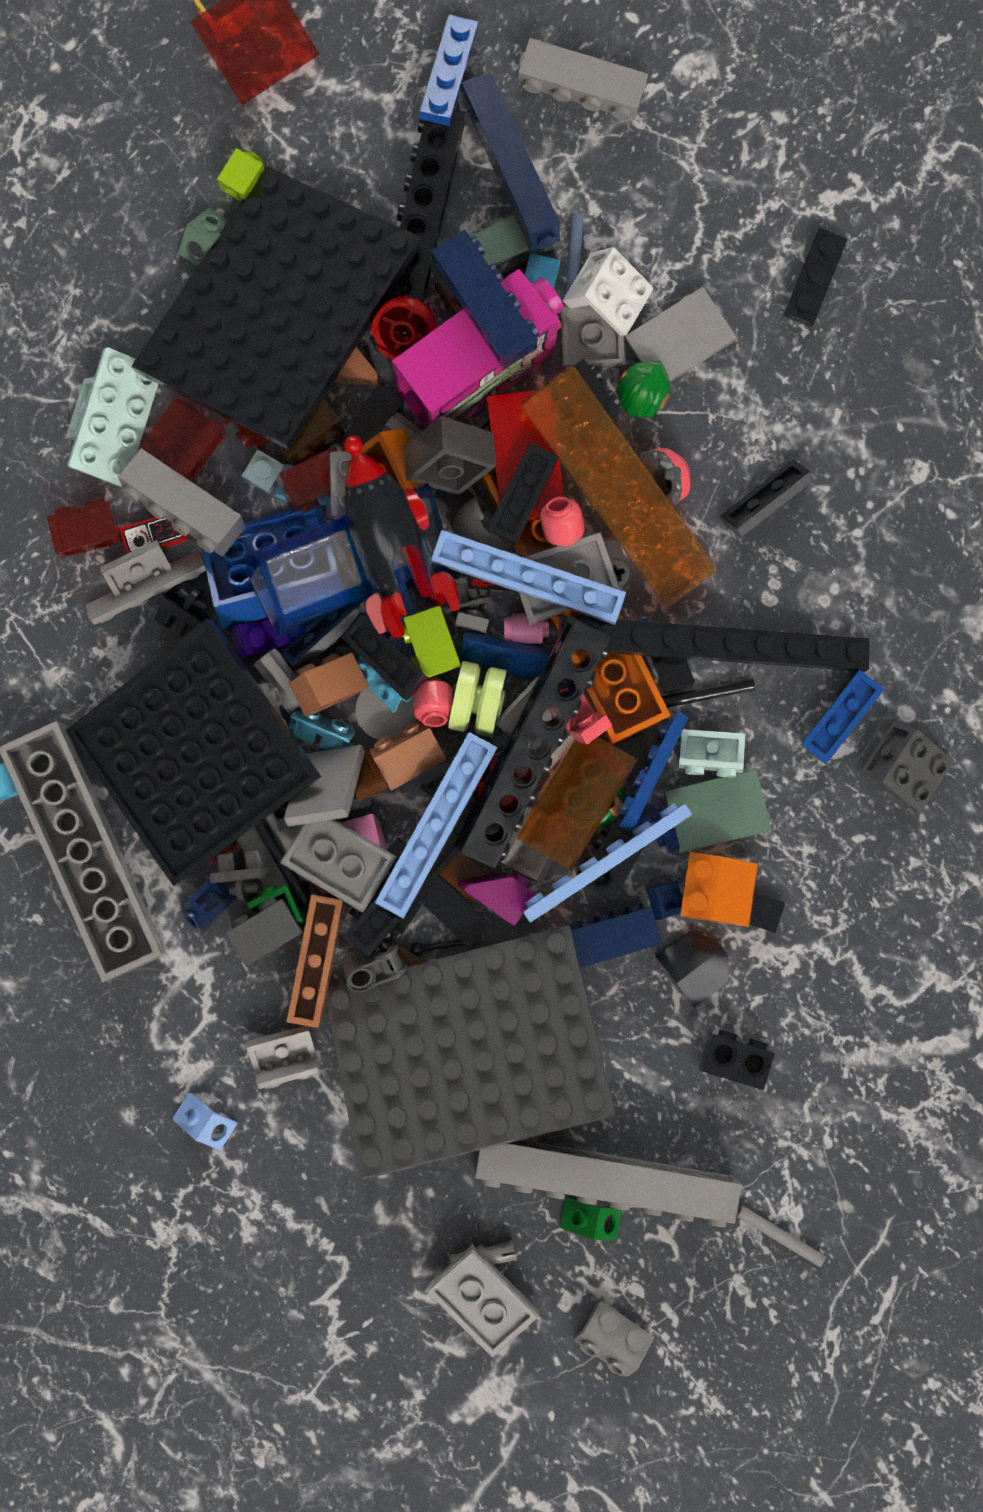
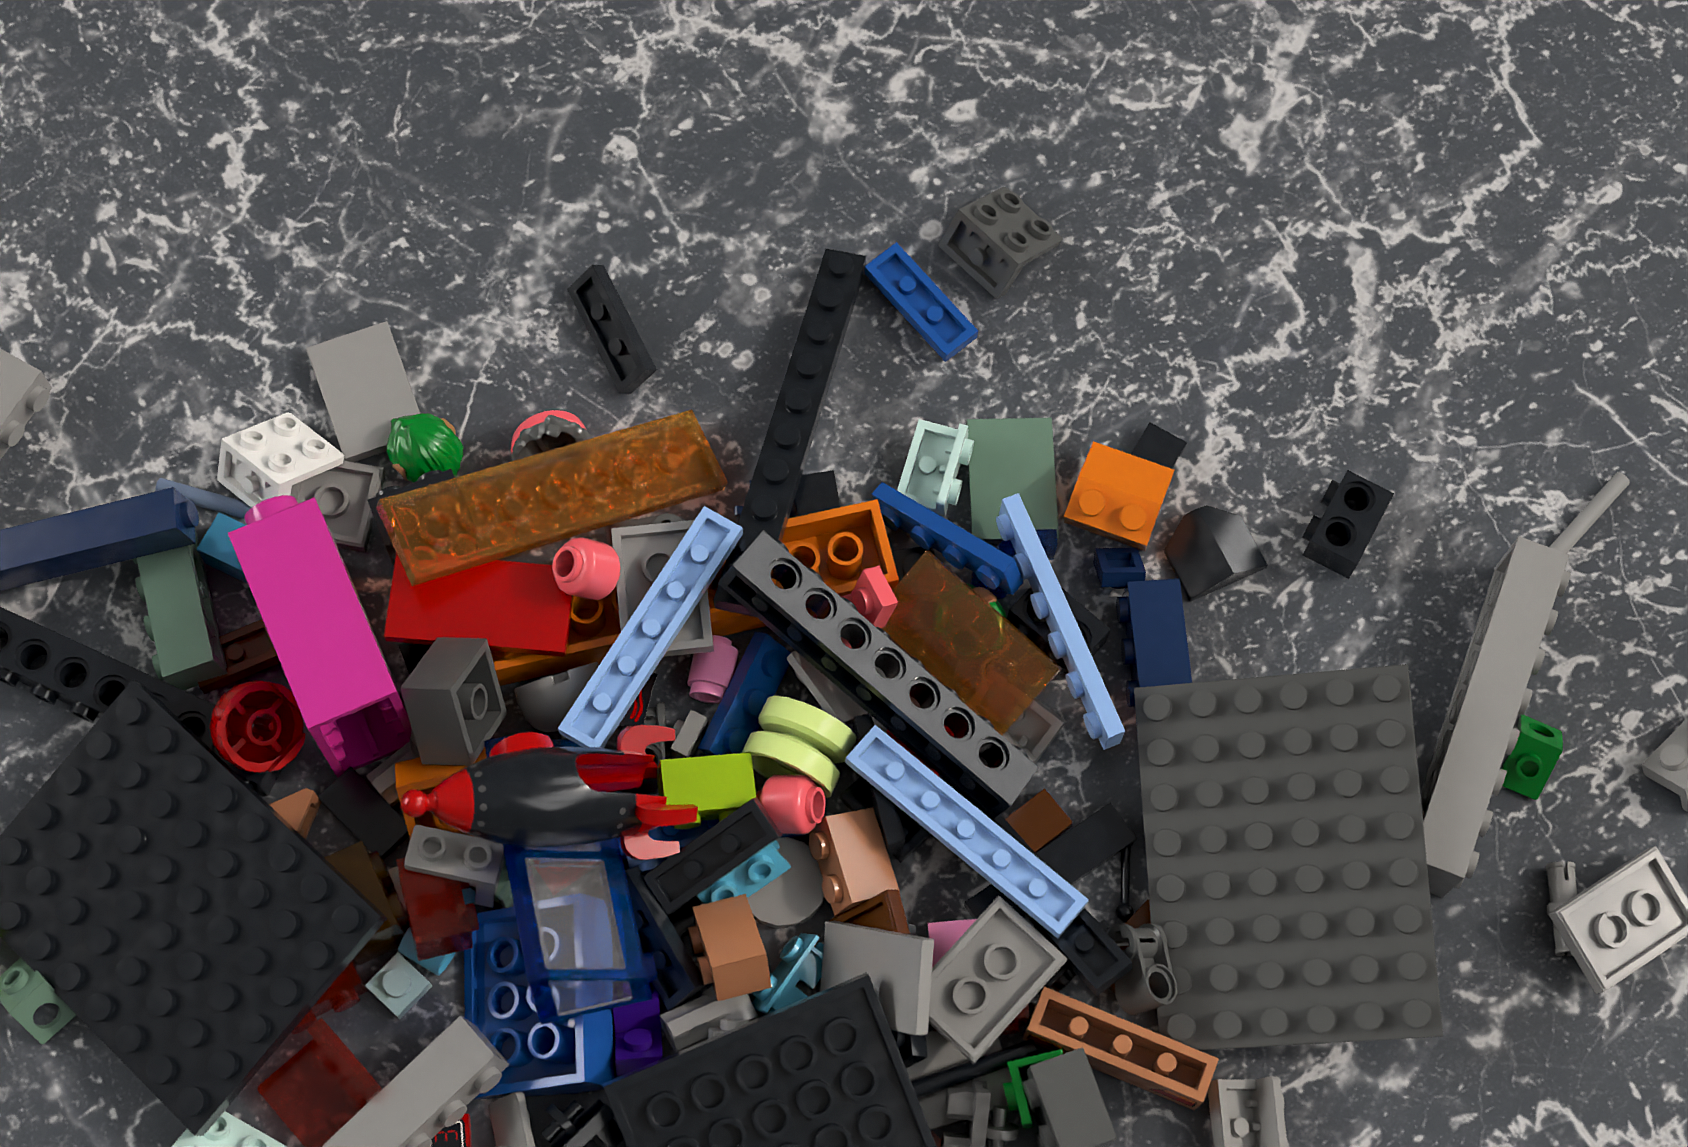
camera: 80 degrees left, 15 degrees down
(485, 299) = (258, 580): dark blue brick -> none
(500, 893) = (1072, 776): magenta slope -> none
(522, 494) = (535, 612): black plate -> none
(709, 693) = (852, 451): black bar -> none
(815, 277) = (334, 212): black plate -> none

